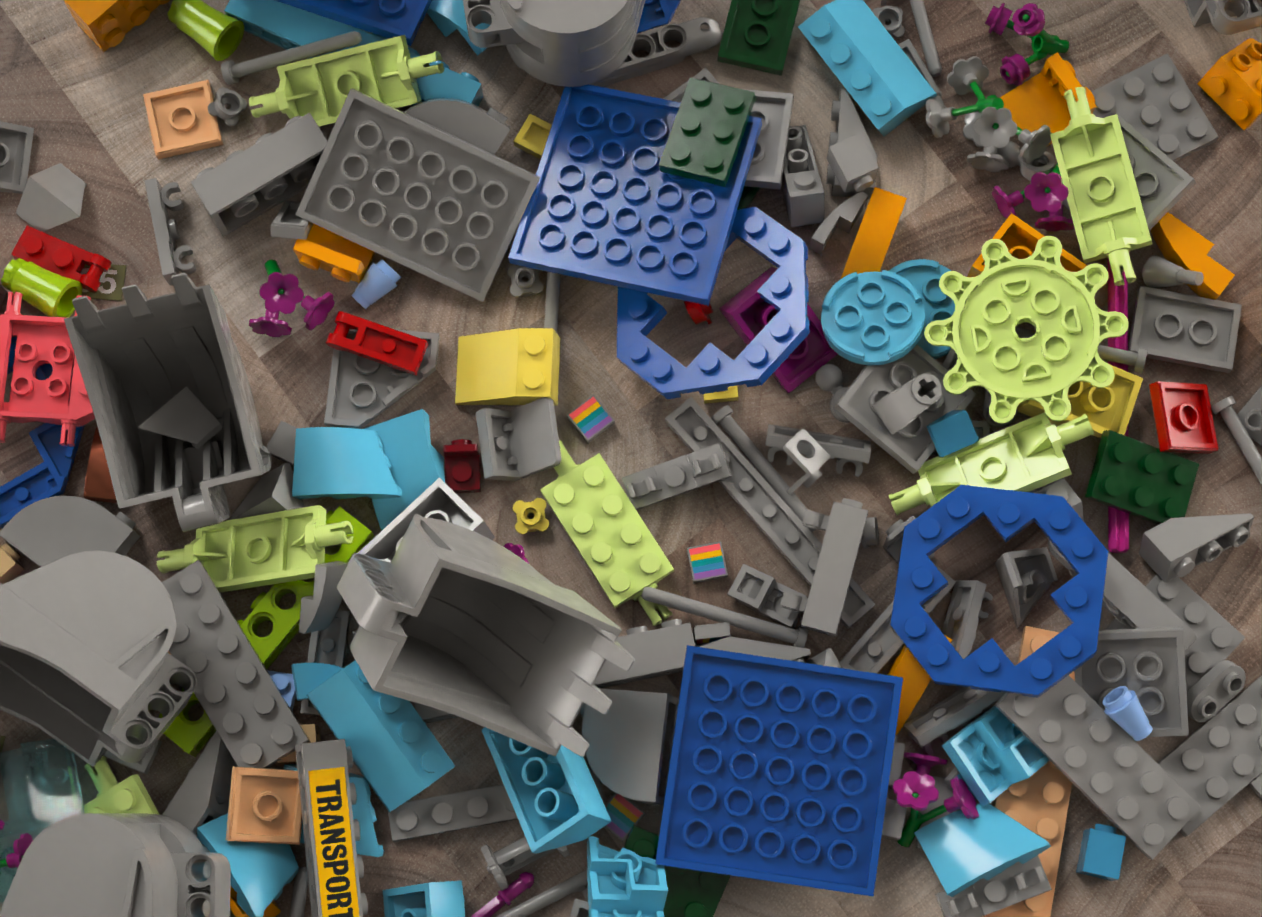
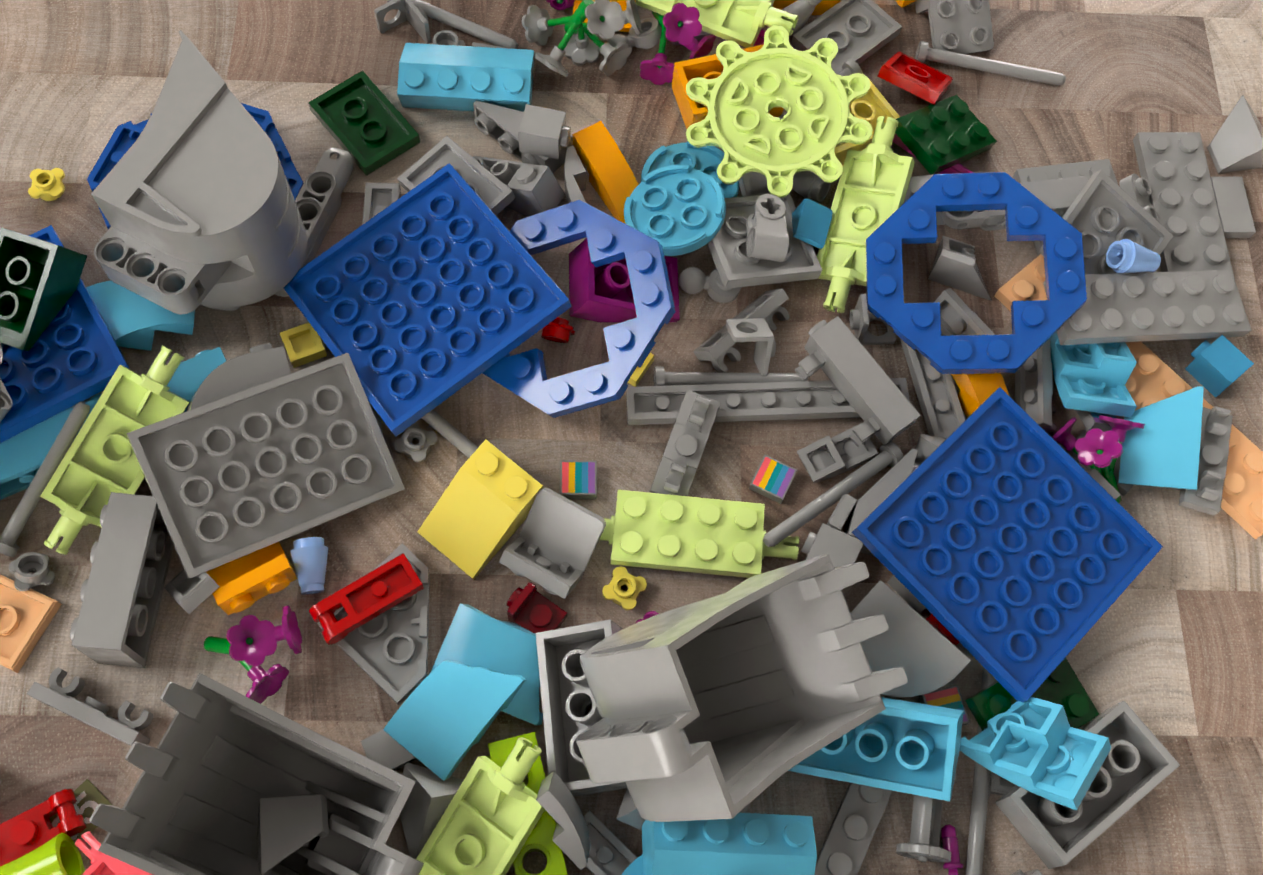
camera: 60 degrees left, 10 degrees down
(707, 132) = (426, 206): plate -> none
(1185, 542) = (1012, 138): light grey slope -> none

